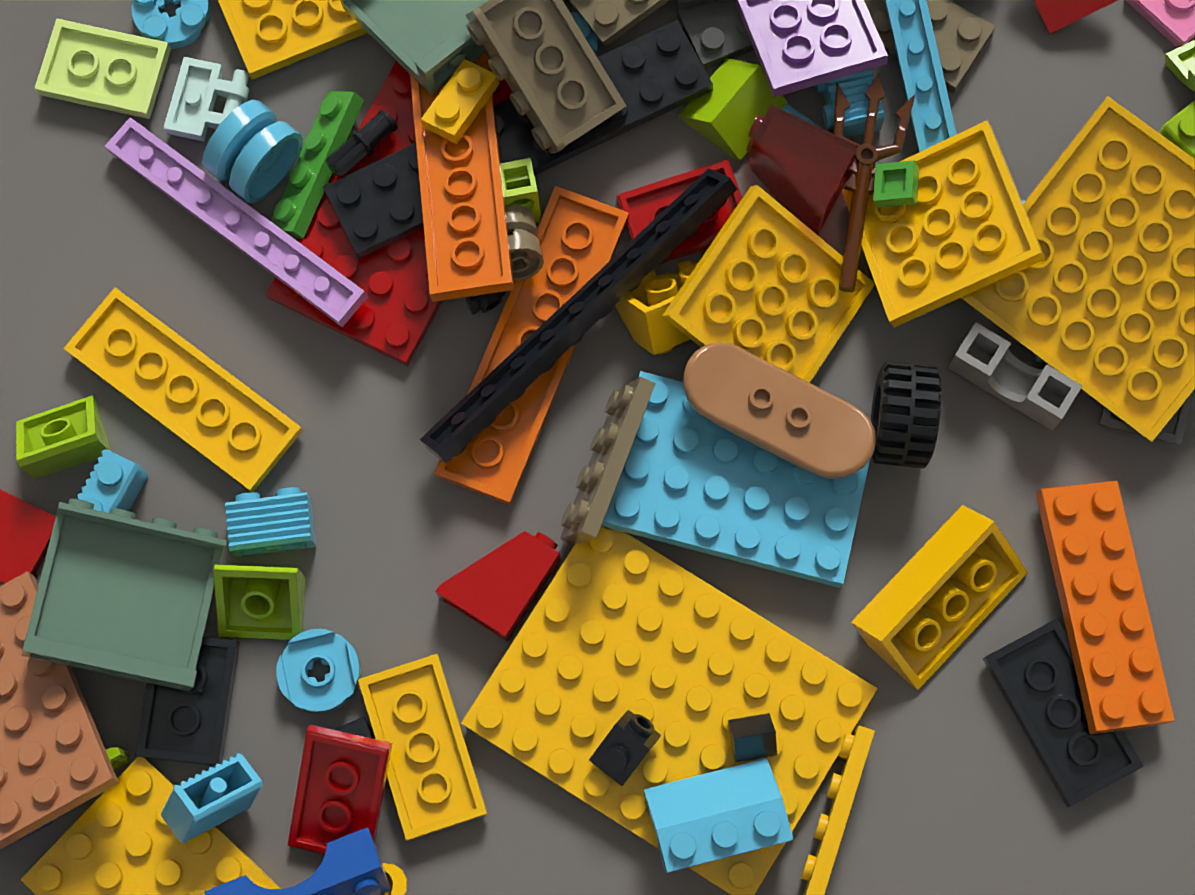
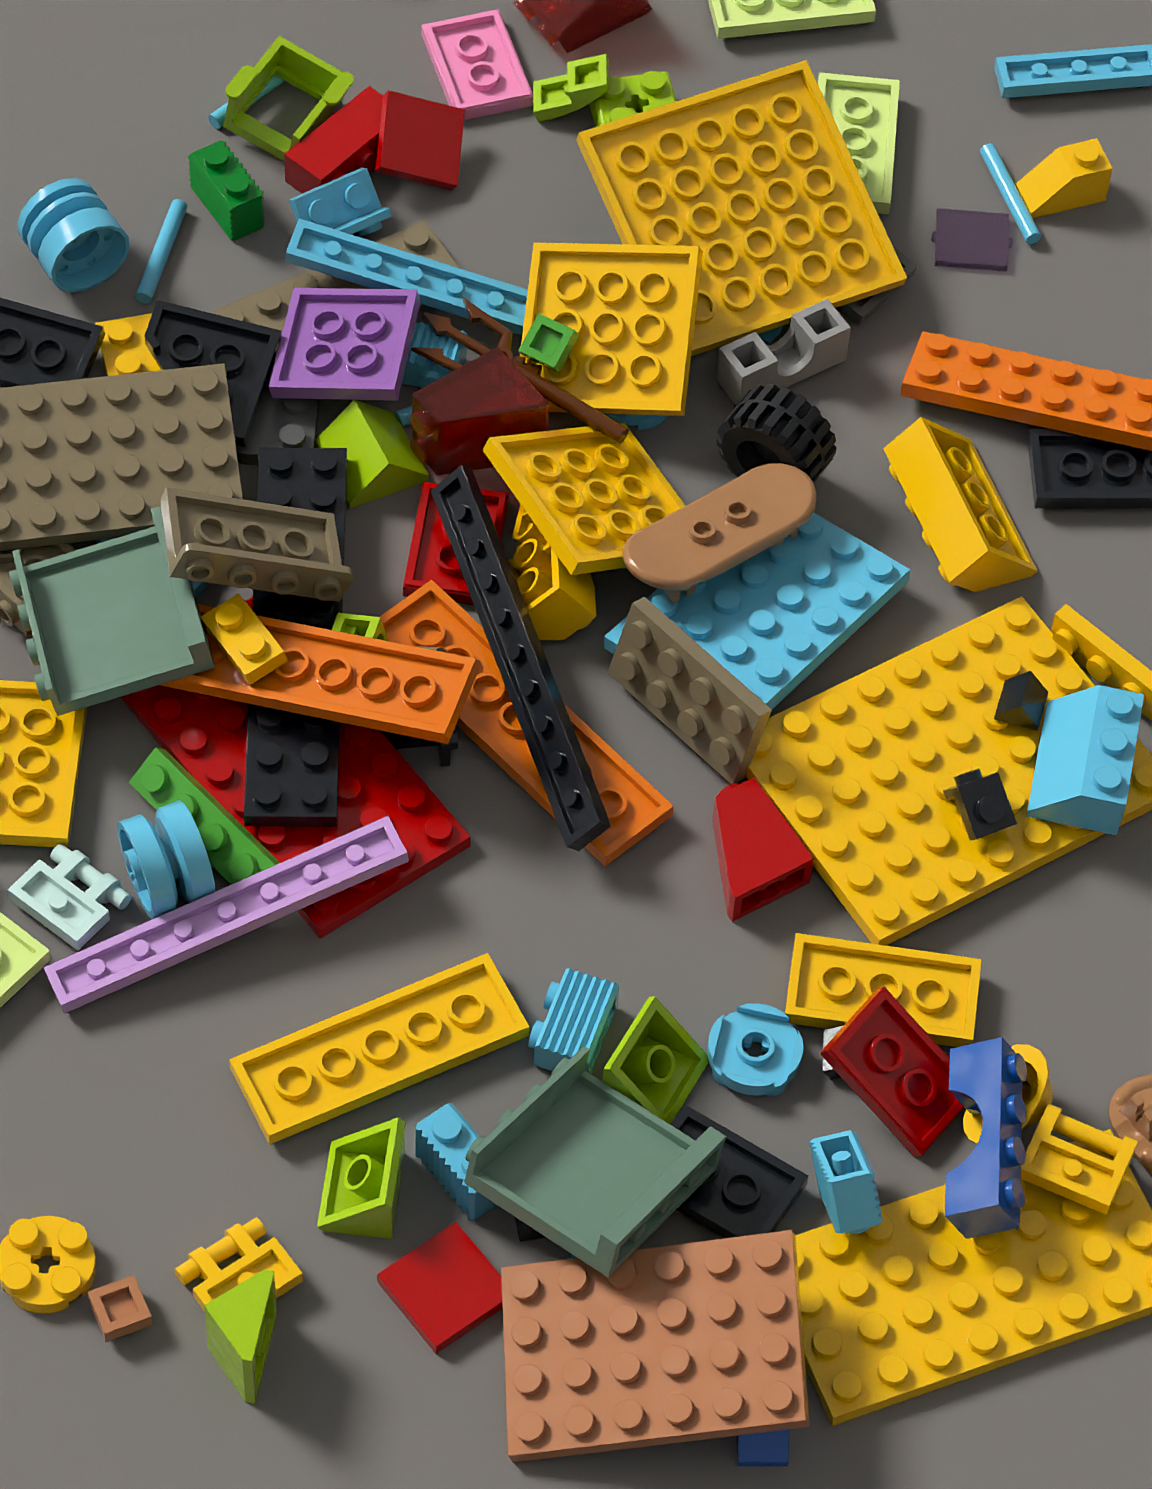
camera: 70 degrees left, 20 degrees down
(361, 143) = (217, 761): black axle -> none

